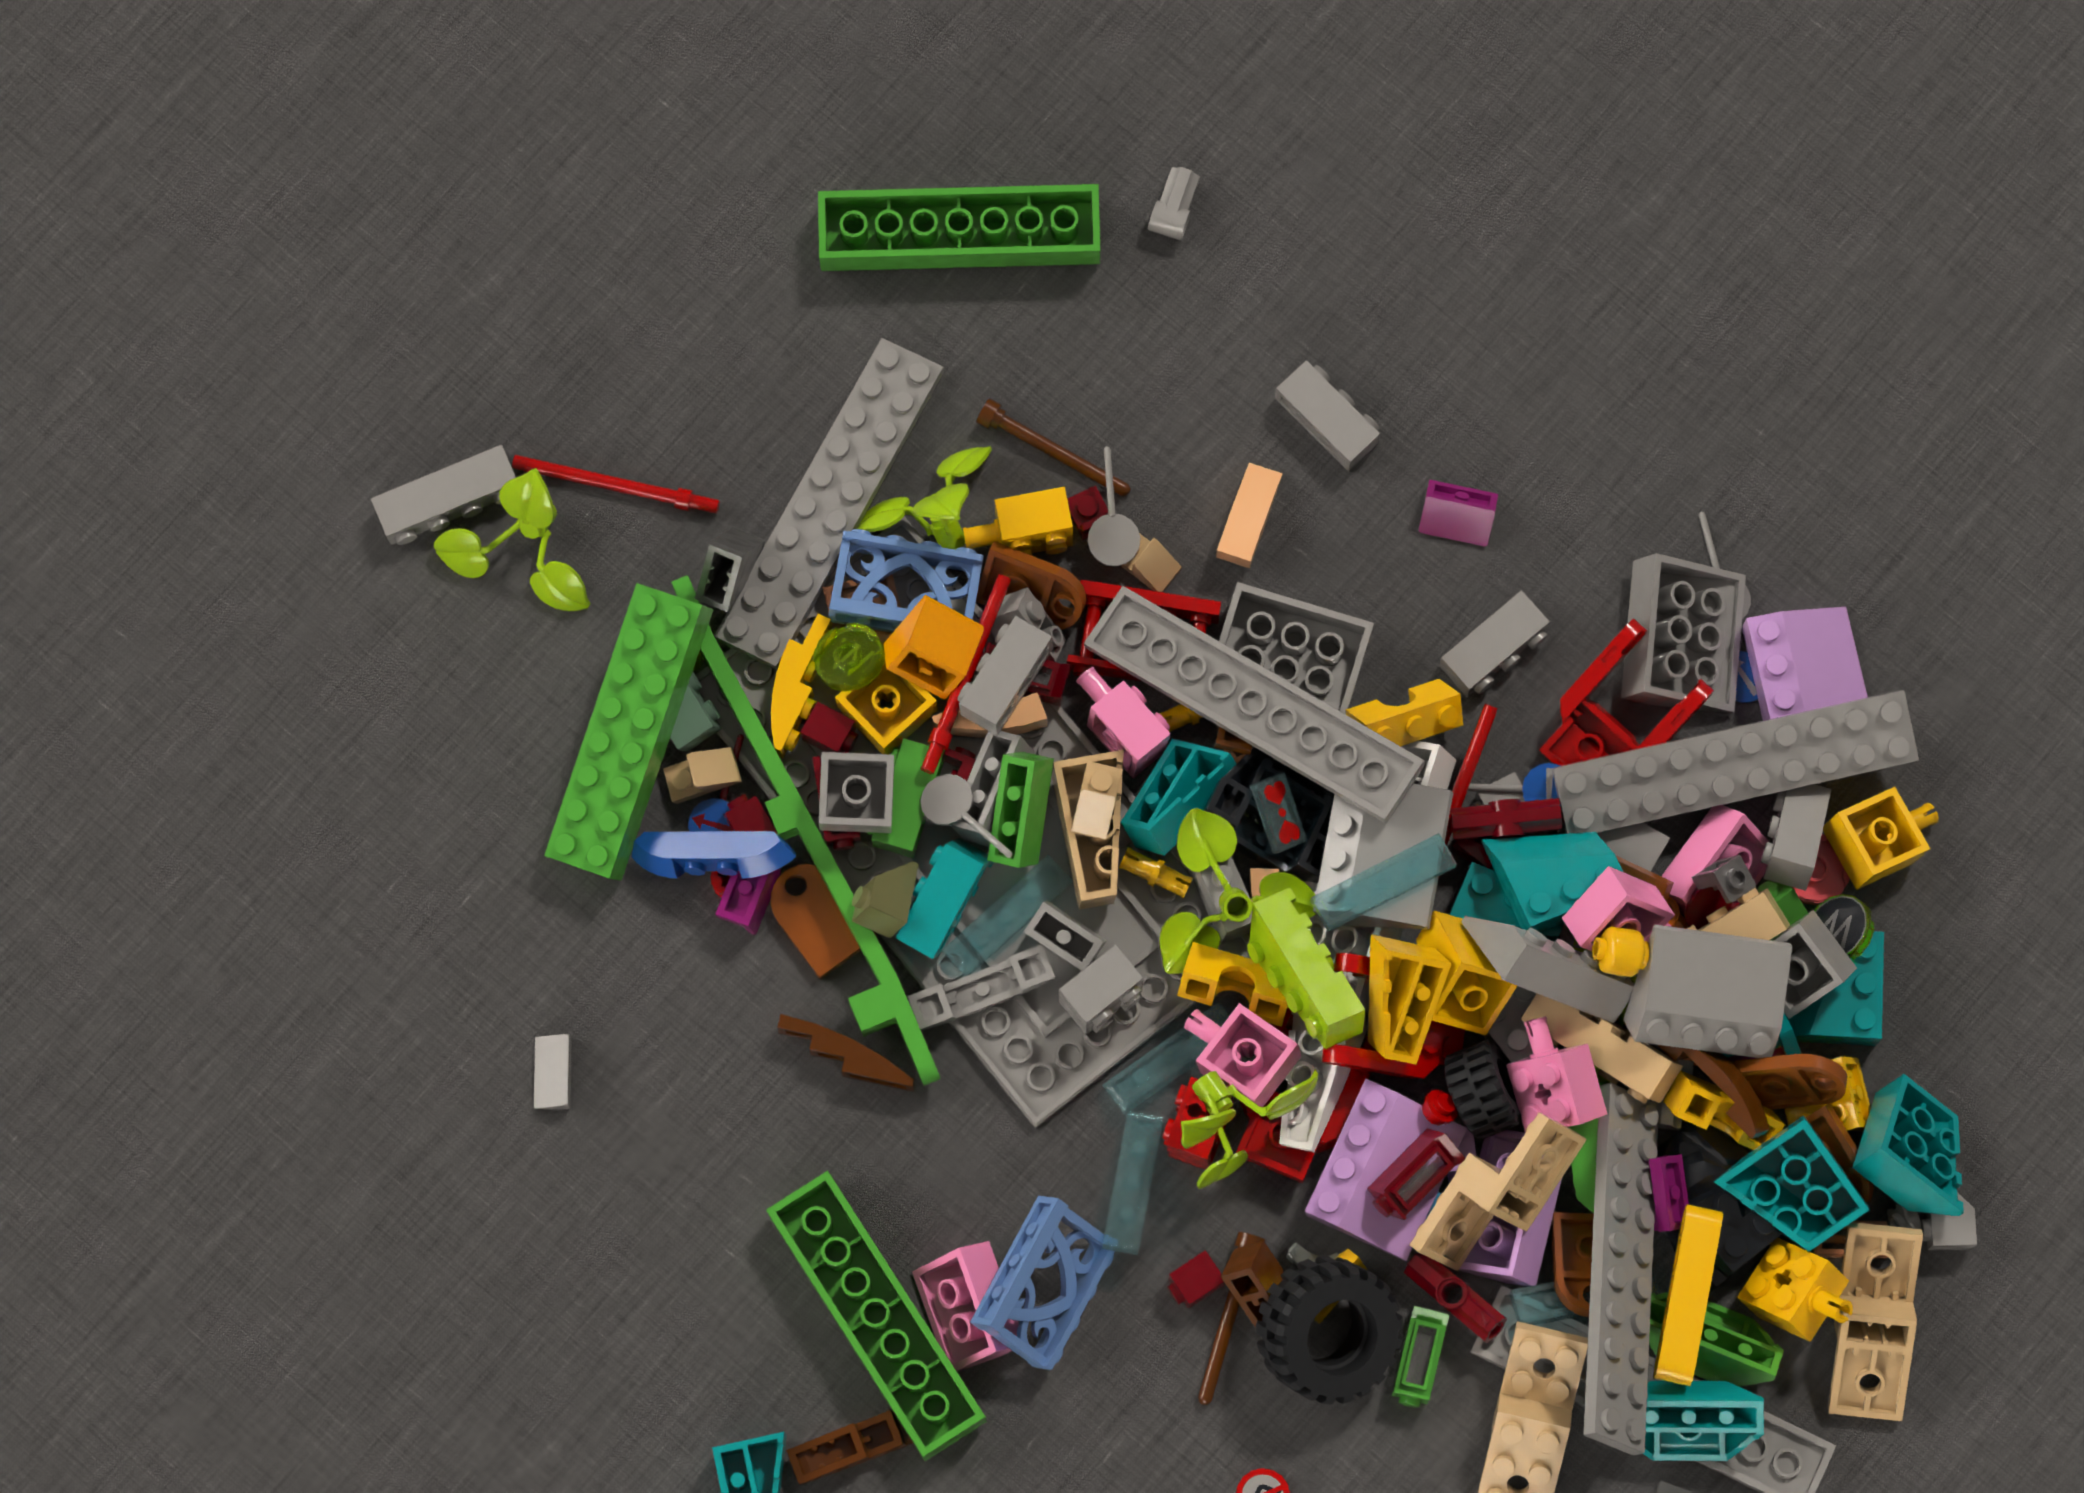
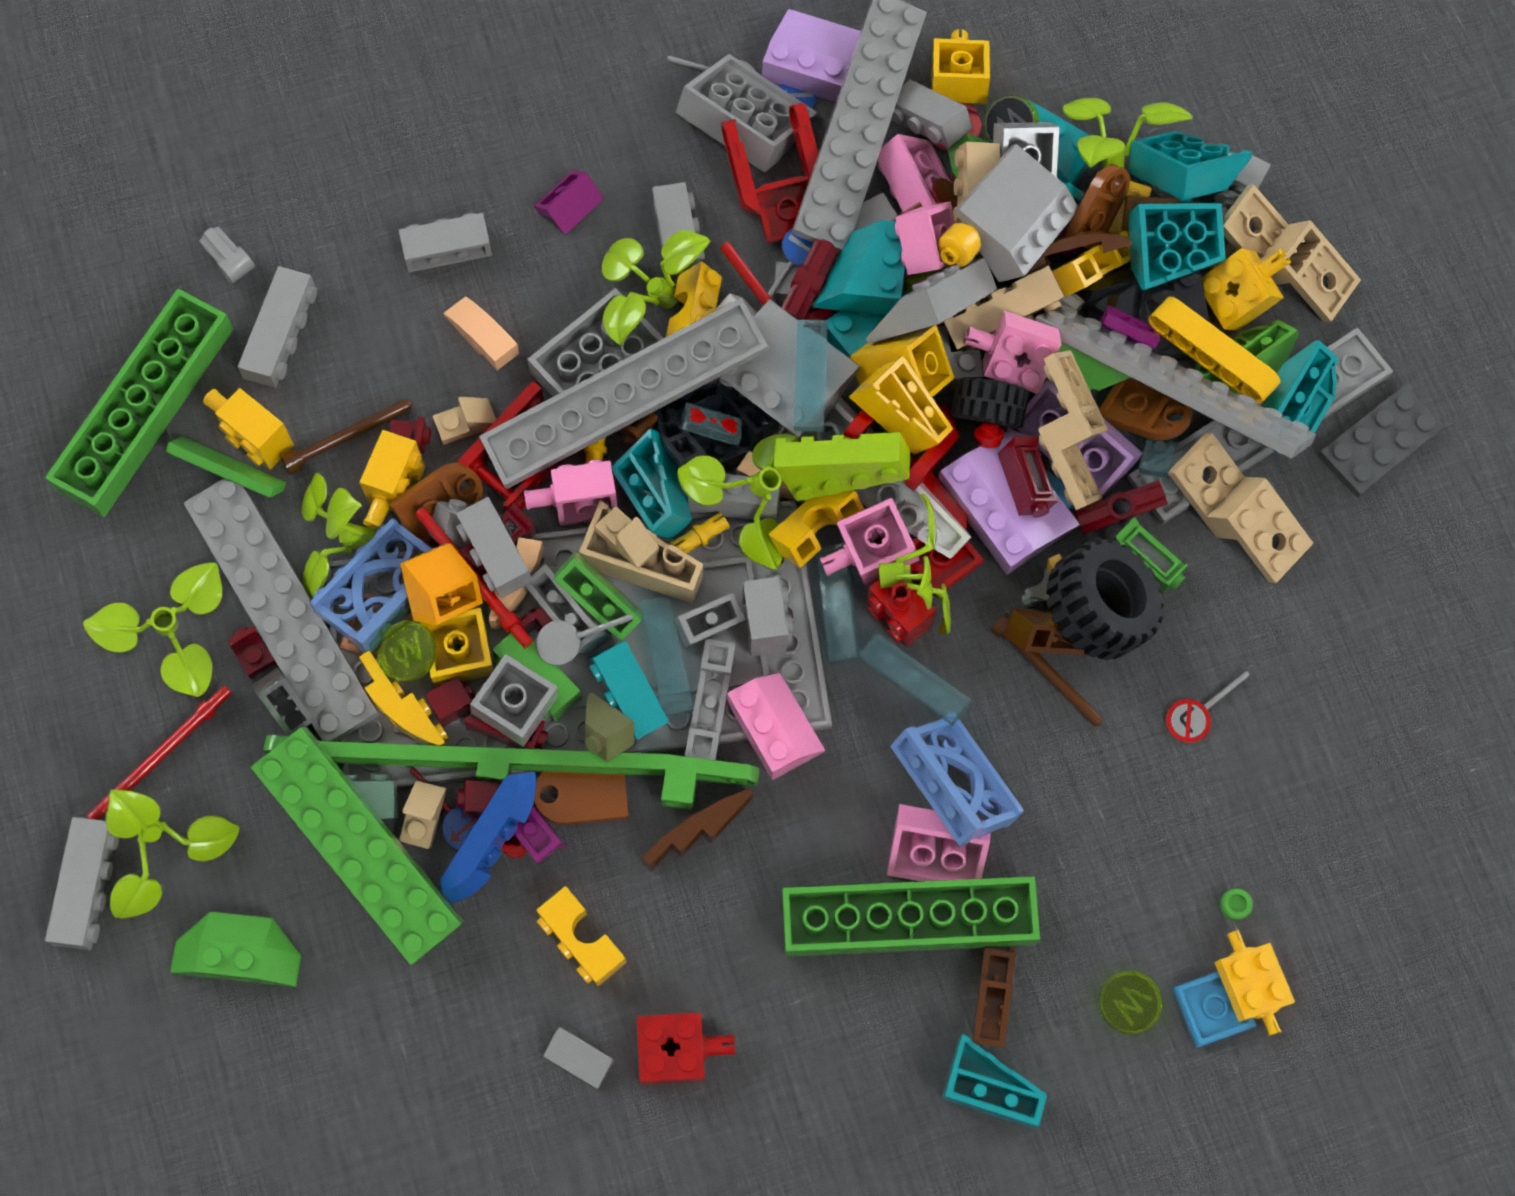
camera: 65 degrees left, 5 degrees down
(468, 683) = (237, 950): none -> bright green wedge
(624, 1175) = (686, 1033): none -> red brick
(677, 972) = (596, 959): none -> yellow arch
(715, 454) = (188, 669): none -> lime plant
(768, 503) = (251, 651): none -> dark red bracket
(944, 354) = (226, 467): none -> bright green tile
(996, 351) = (250, 427): none -> yellow brick
(998, 1067) = (774, 724): none -> bright pink slope
(1113, 537) = (437, 425): light grey piece -> none
(1126, 307) = (277, 327): none -> light grey brick
(1195, 1280) = (1009, 676): dark red brick -> none
(1446, 666) = (626, 312): none -> lime plant
(1727, 876) = (935, 162): flat silver bracket -> none
(1857, 1041) = (1112, 150): none -> lime plant

